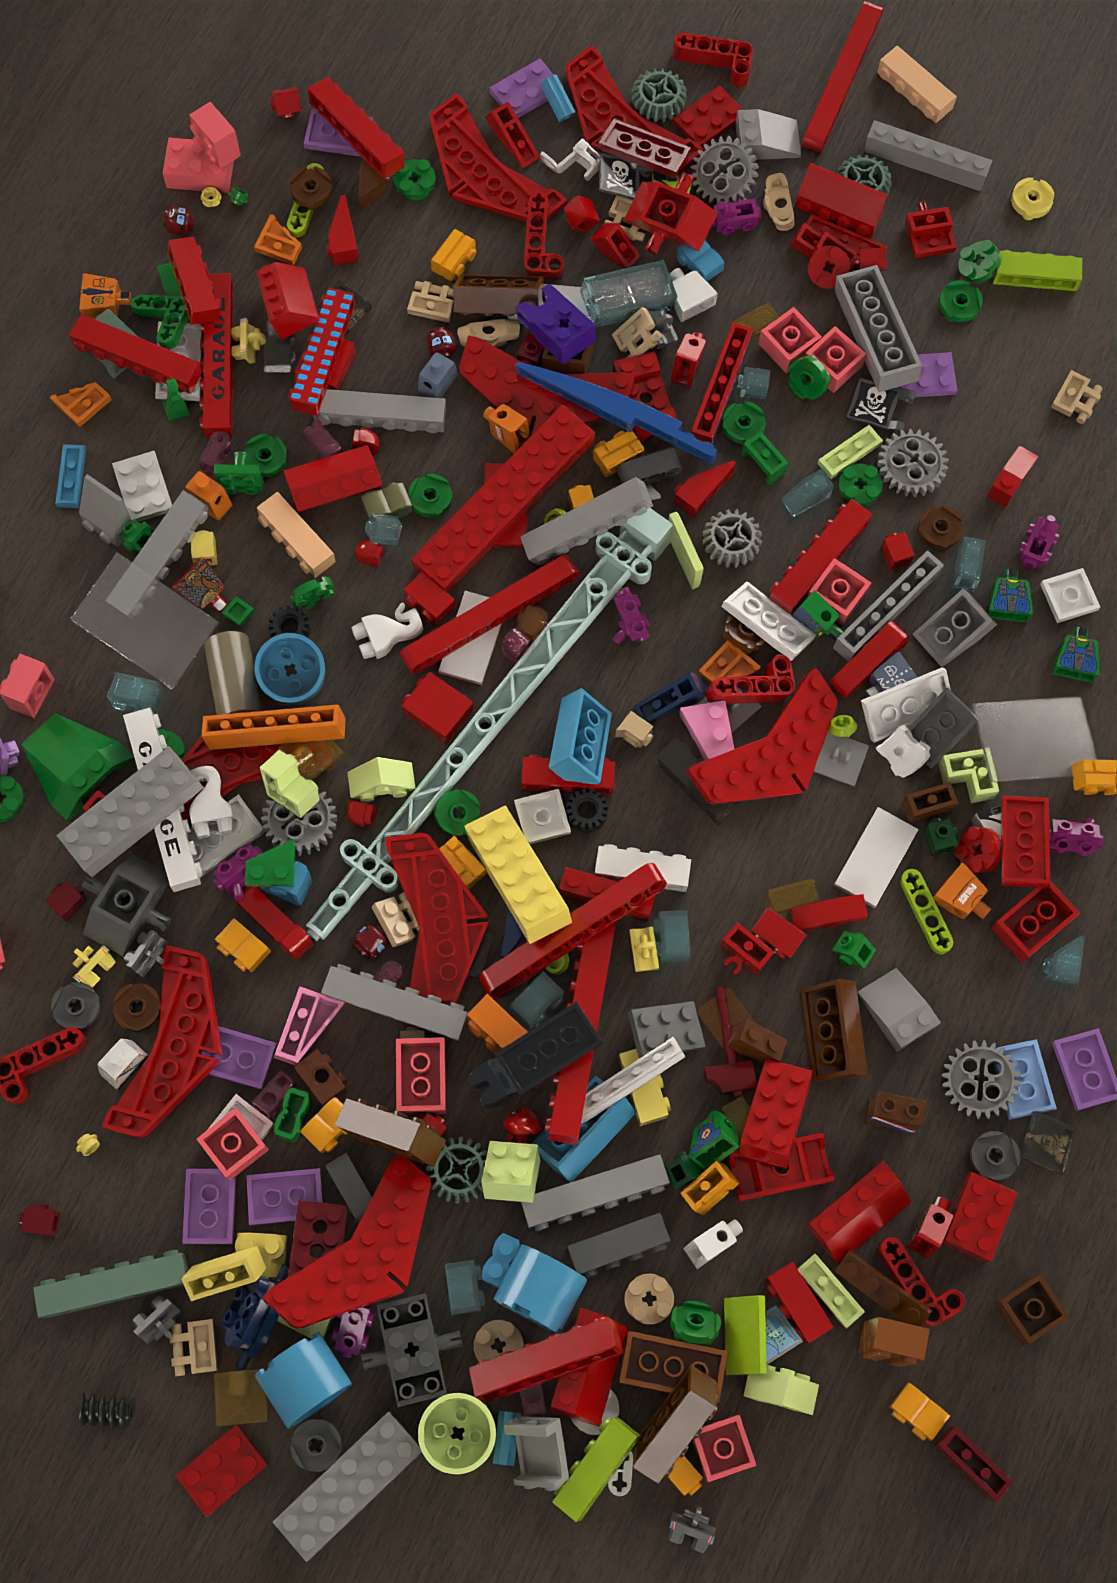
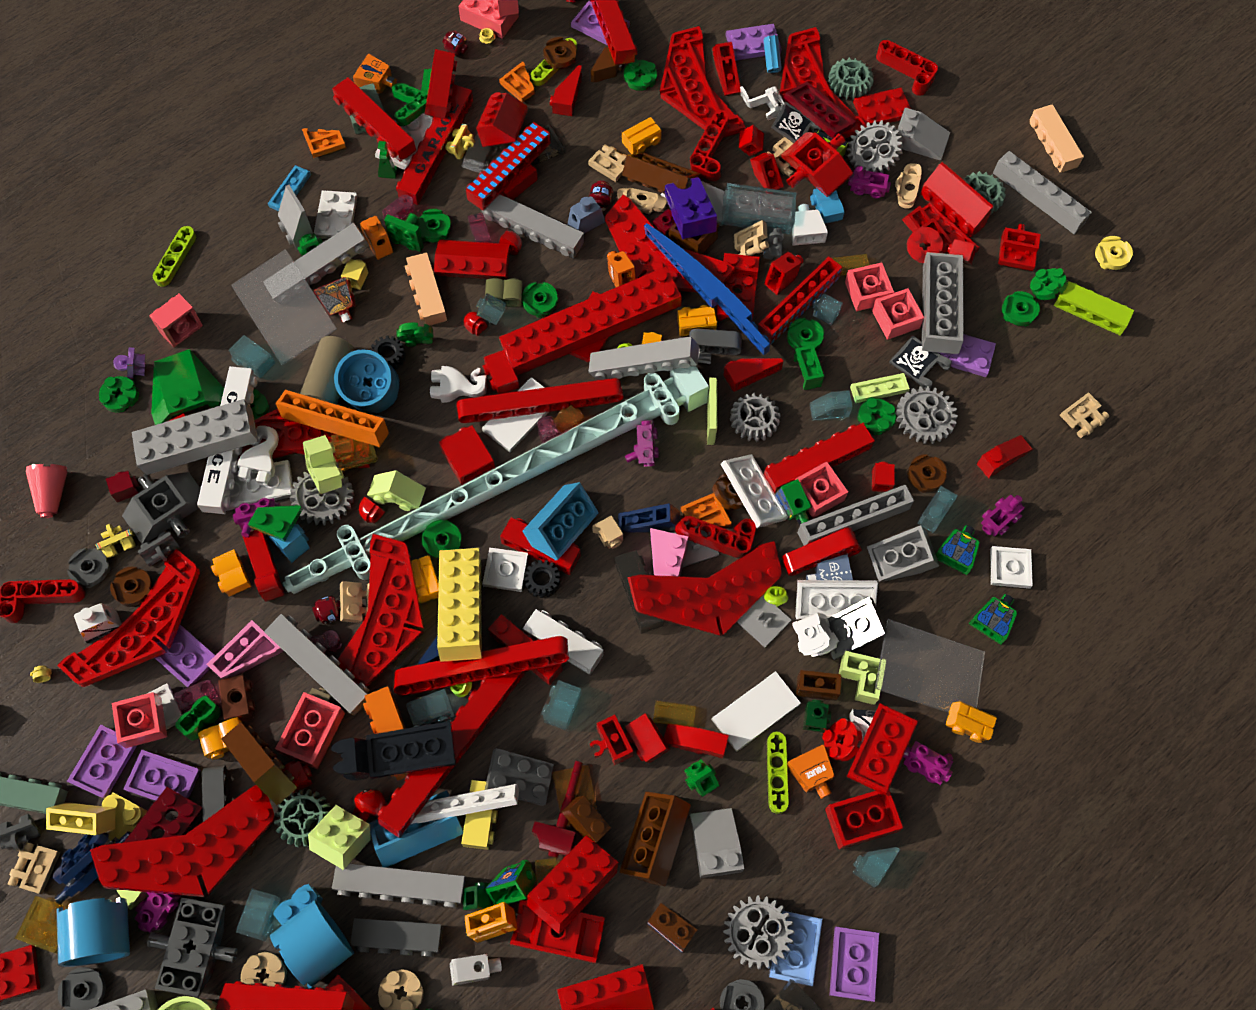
camera: 25 degrees right, 5 degrees down
(238, 196) = (506, 42): green plate -> none
(238, 612) = (356, 328): green plate -> none
(644, 949) = (532, 705): light yellow hips -> none
(817, 373) = (878, 320): green plate -> none
(842, 77) = (999, 113): red beam -> none

